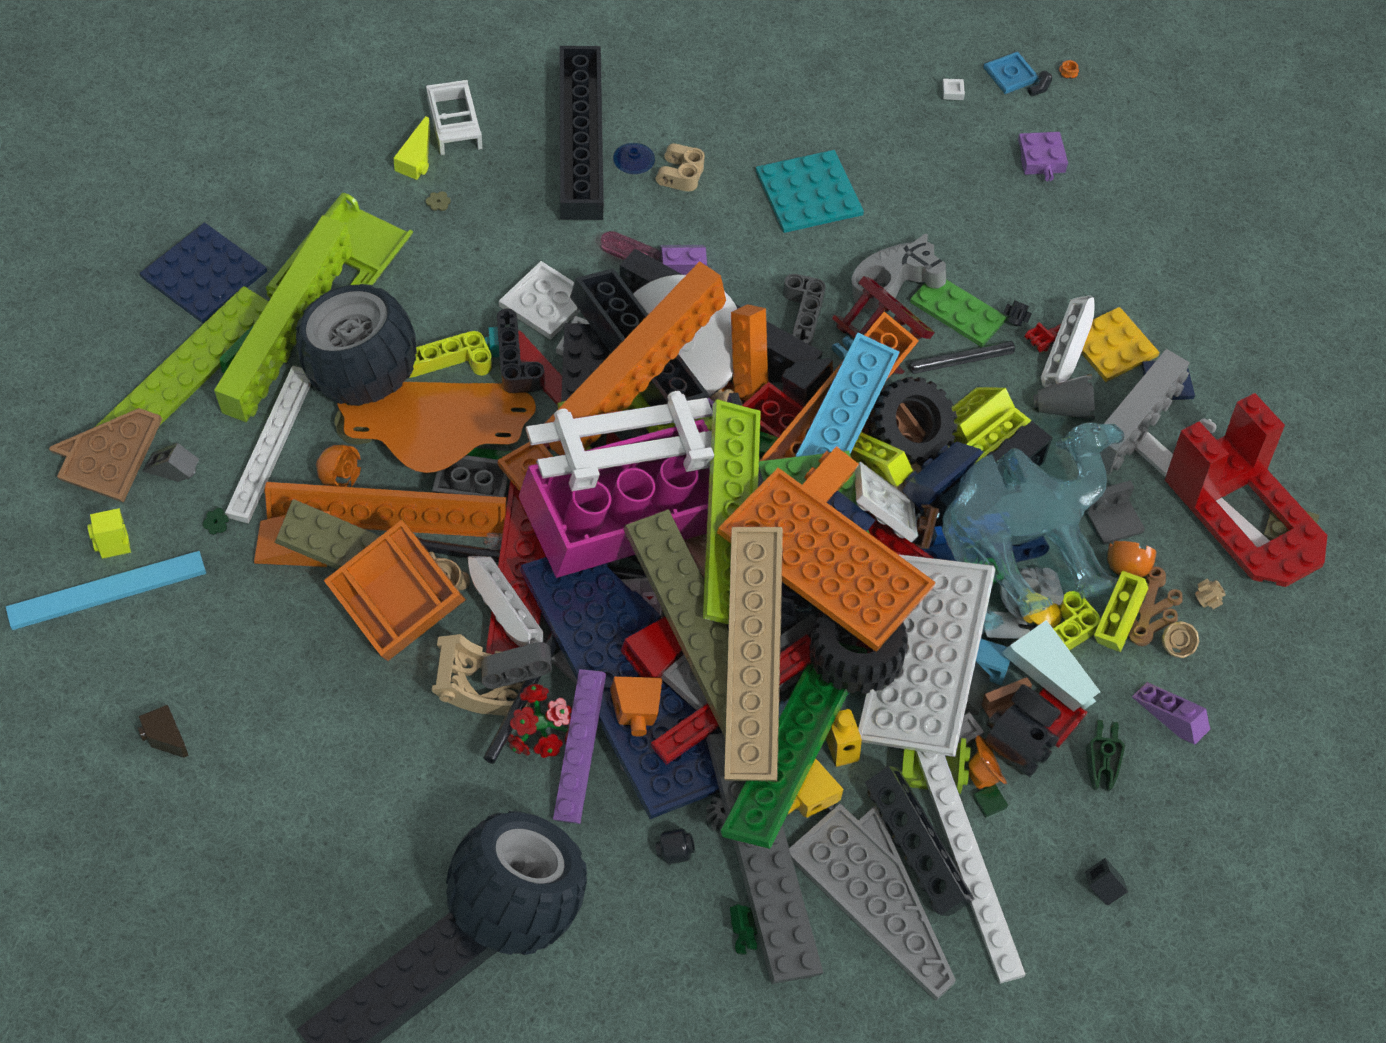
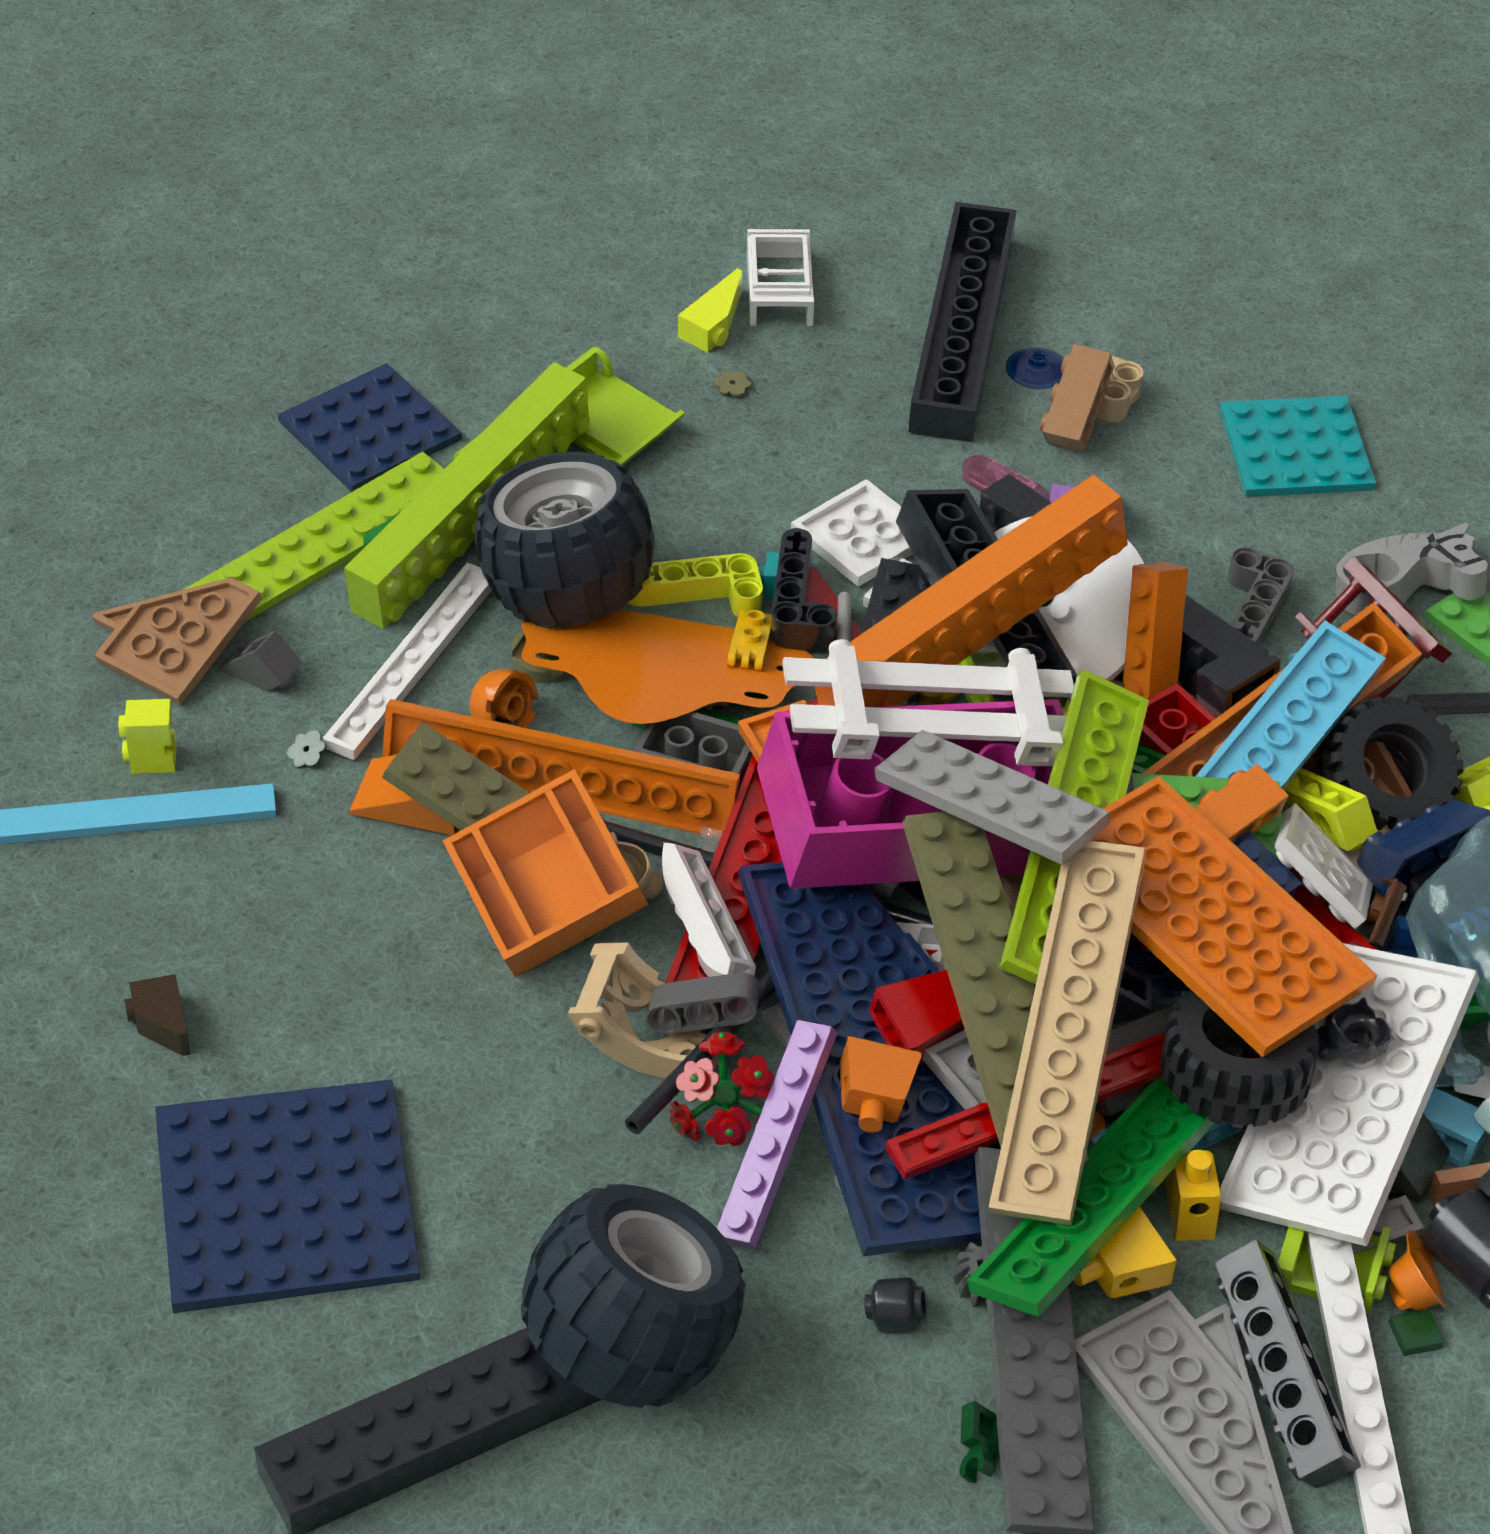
camera: 15 degrees right, 10 degrees down
(273, 844) = (284, 1195): none -> dark blue plate
(490, 391) = (750, 639): none -> yellow hinge
(549, 377) = (844, 616): none -> light grey bar
(666, 181) = (1077, 398): none -> medium nougat brick
(678, 504) = (992, 796): none -> light grey plate
(930, 613) = (1353, 1025): none -> black piece

